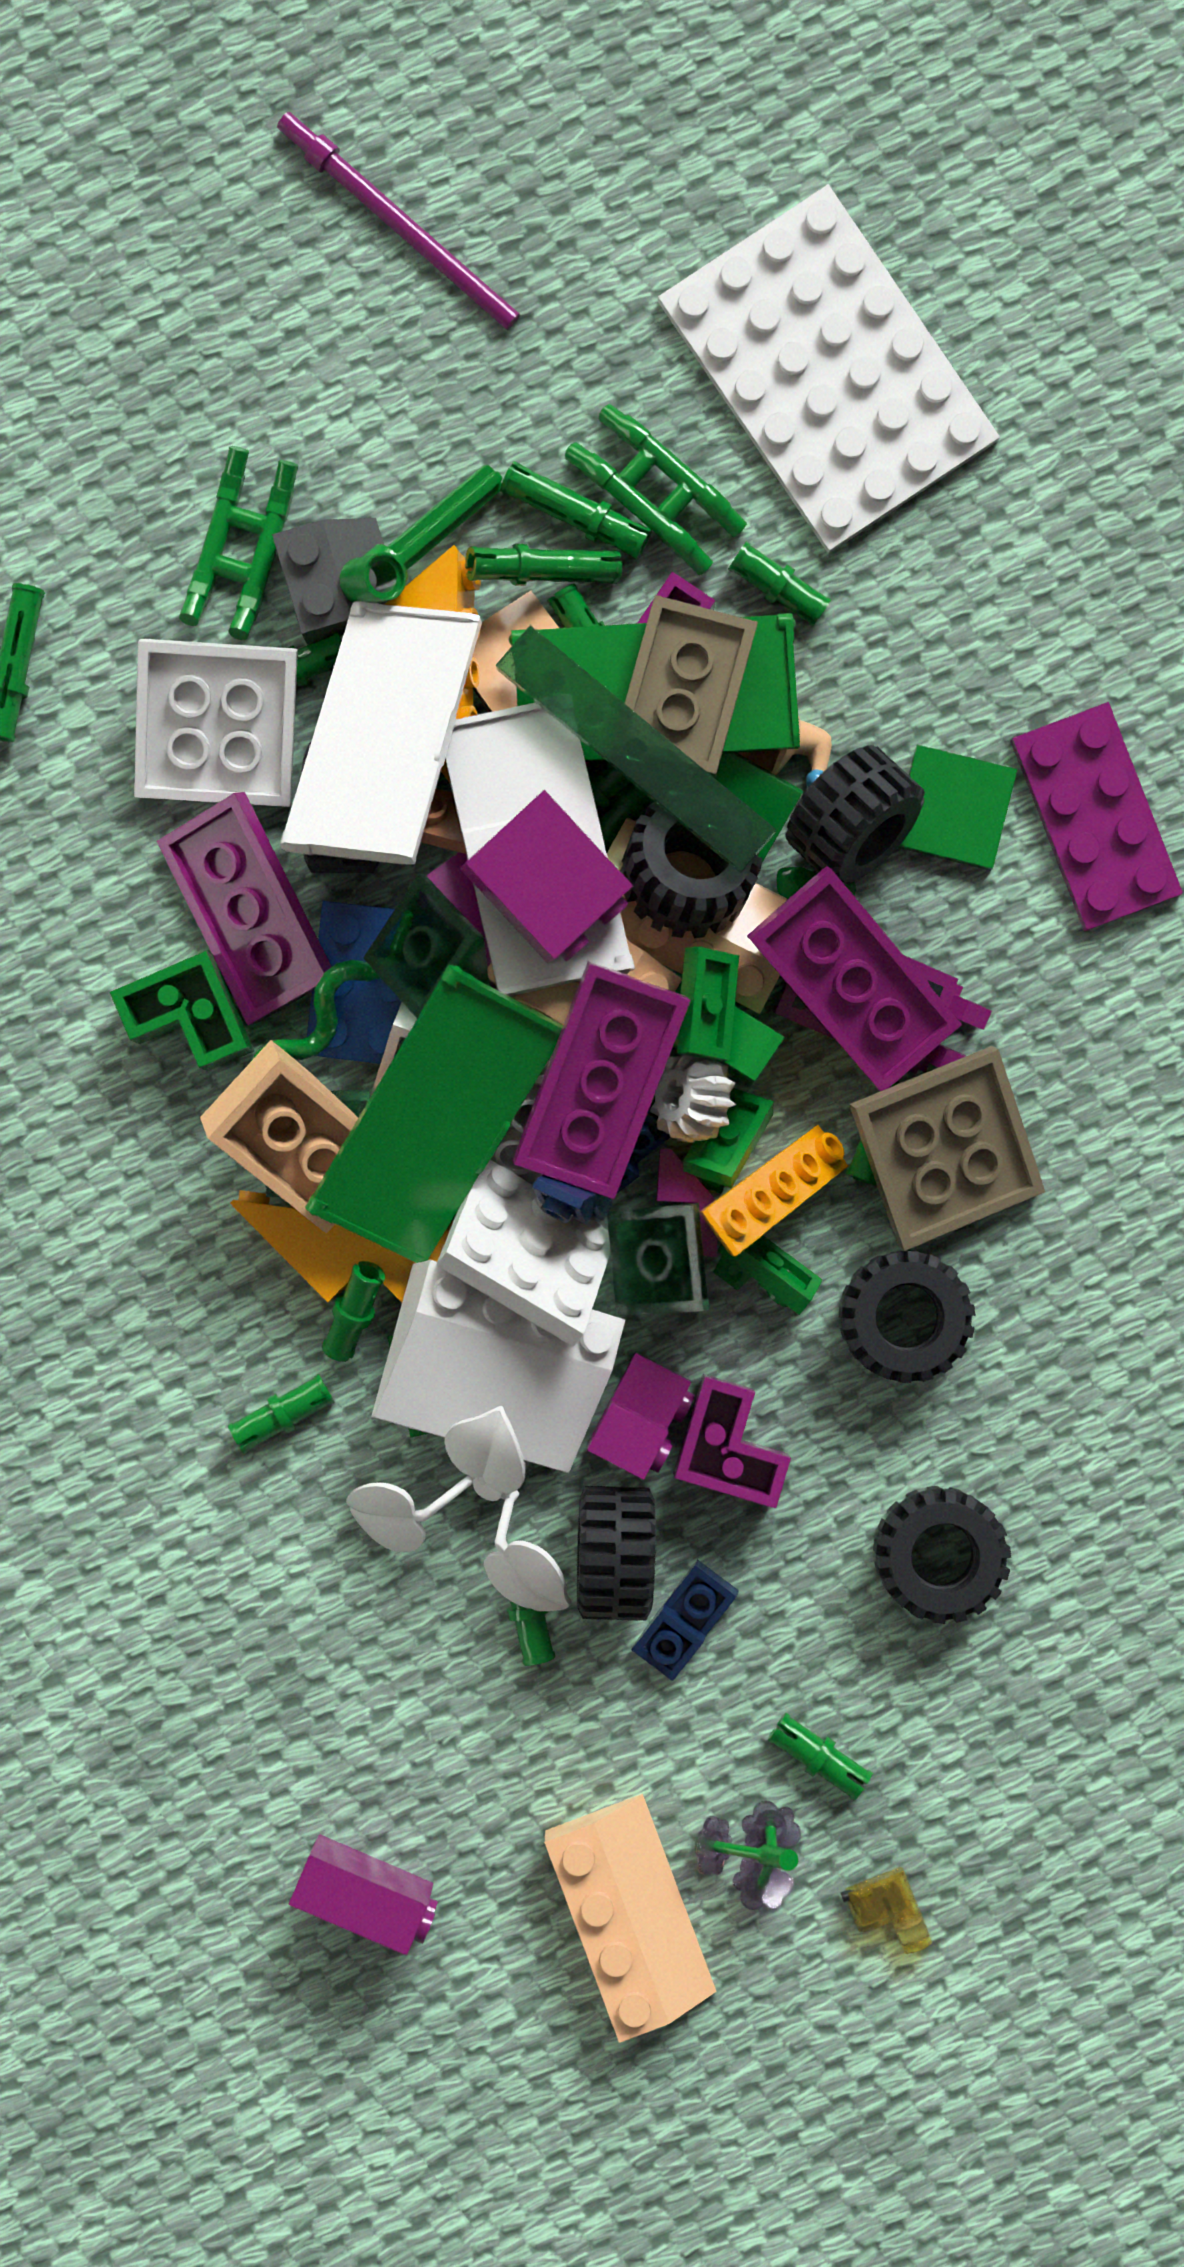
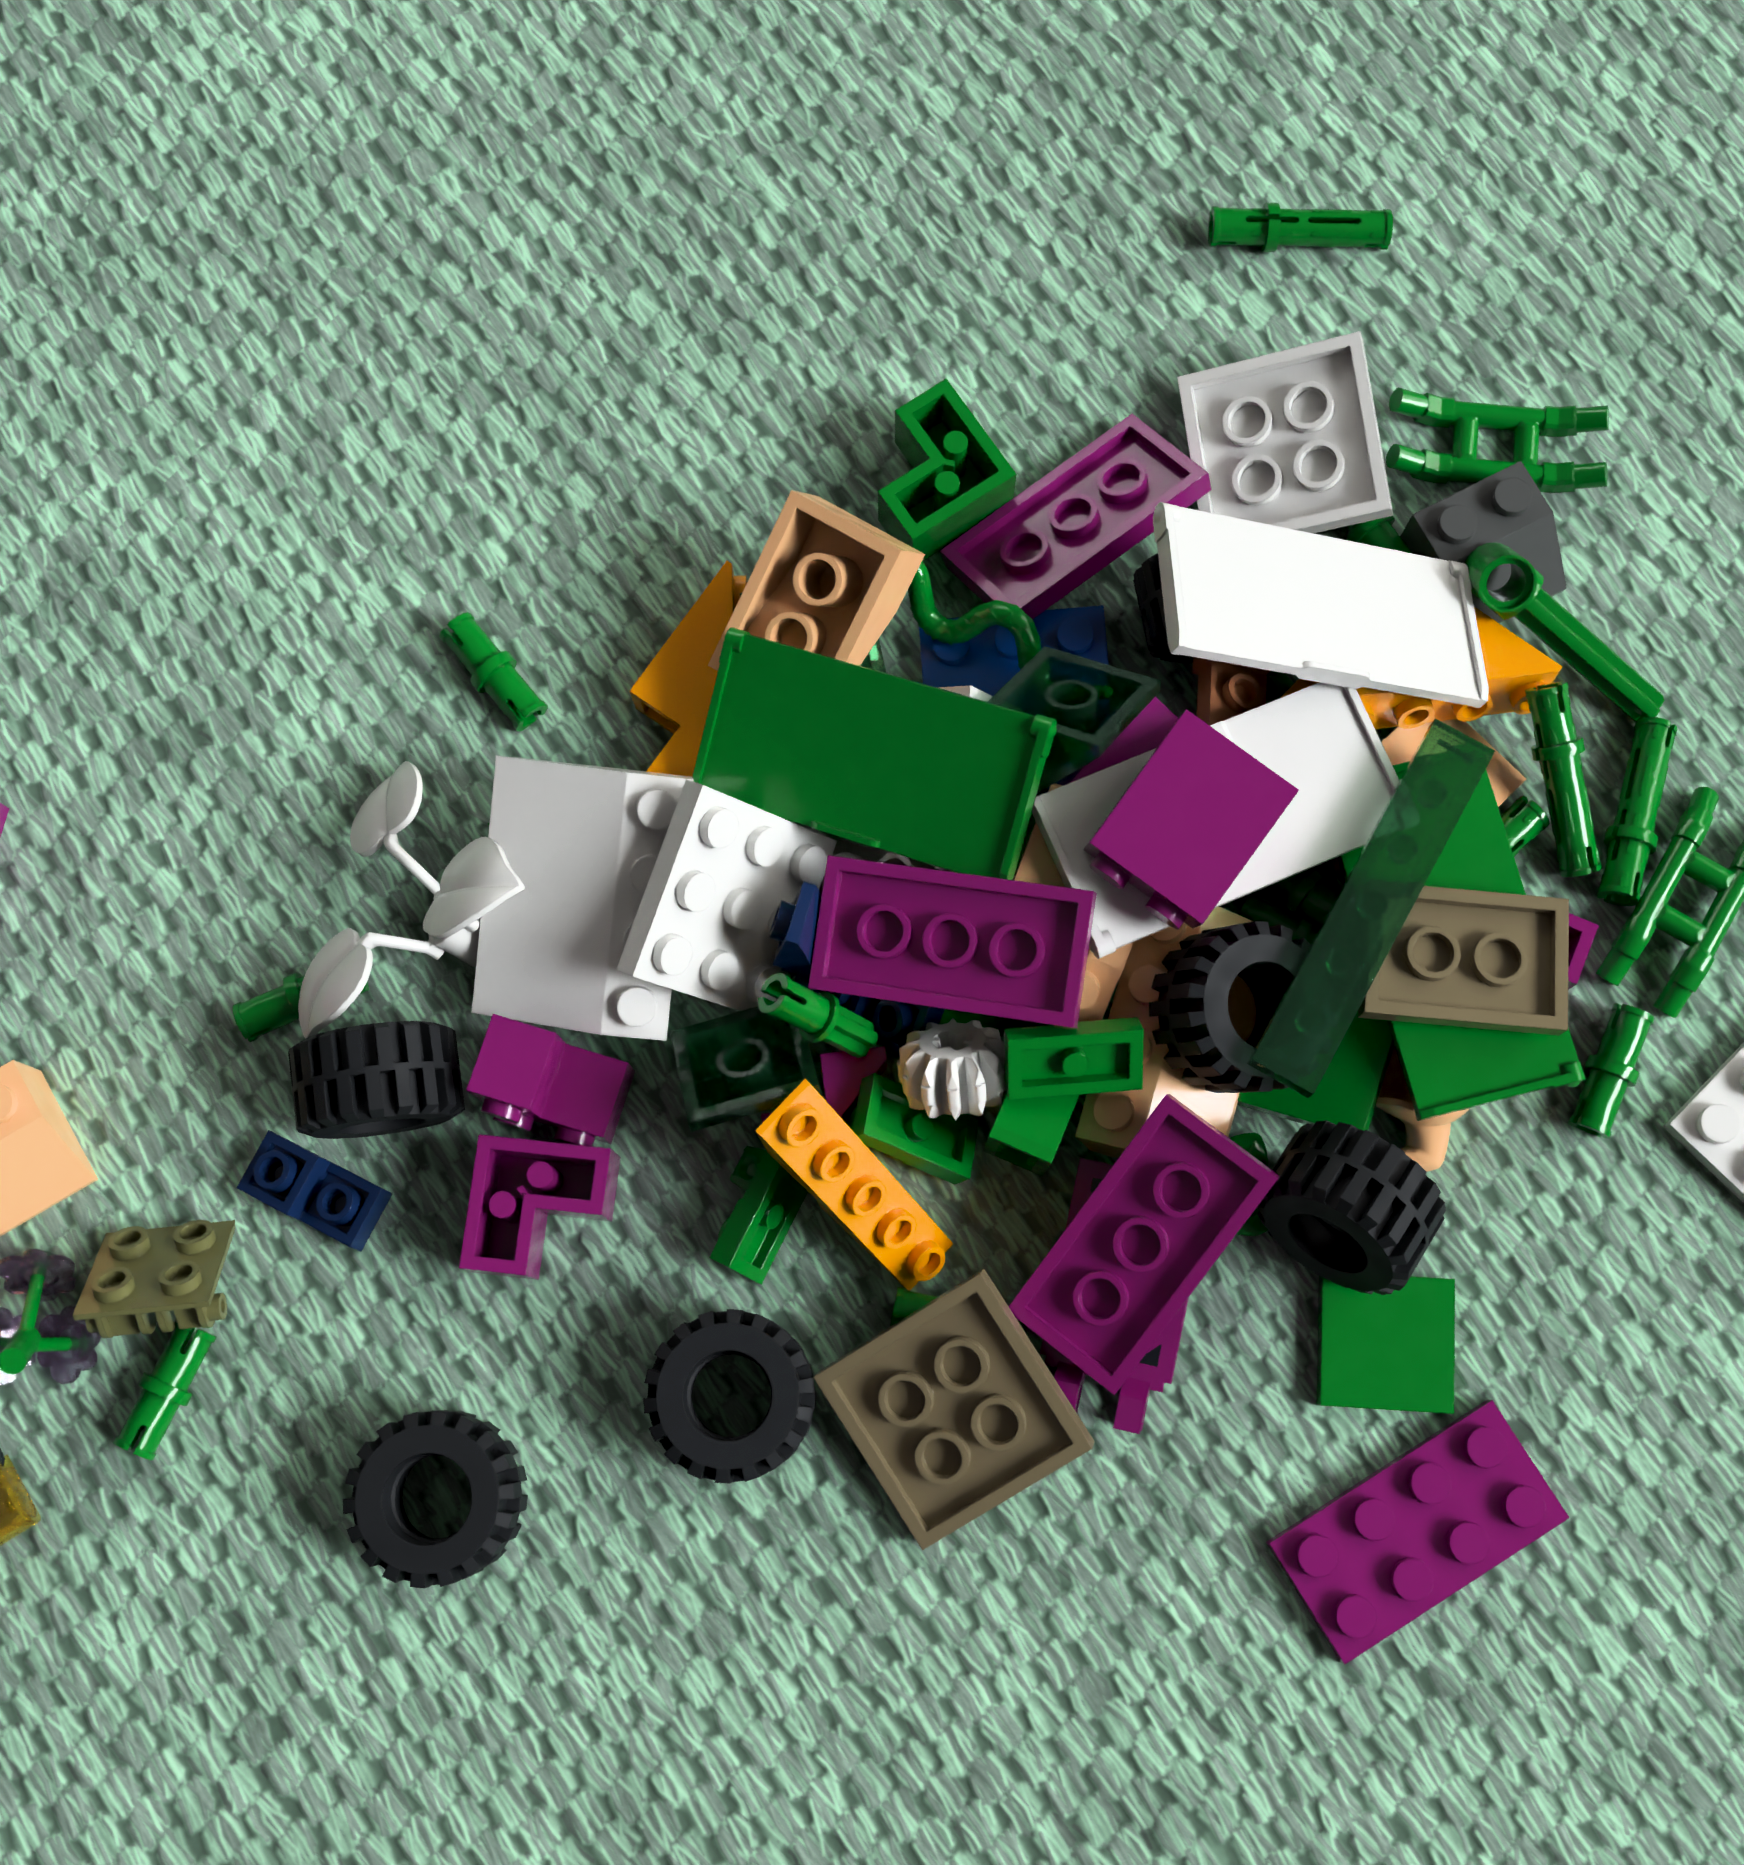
camera: 80 degrees right, 10 degrees down
(353, 1311) = (625, 724): green pin -> none
(634, 1196) = (817, 1016): none -> green axle
(732, 1749) = (155, 1278): none -> olive hinge

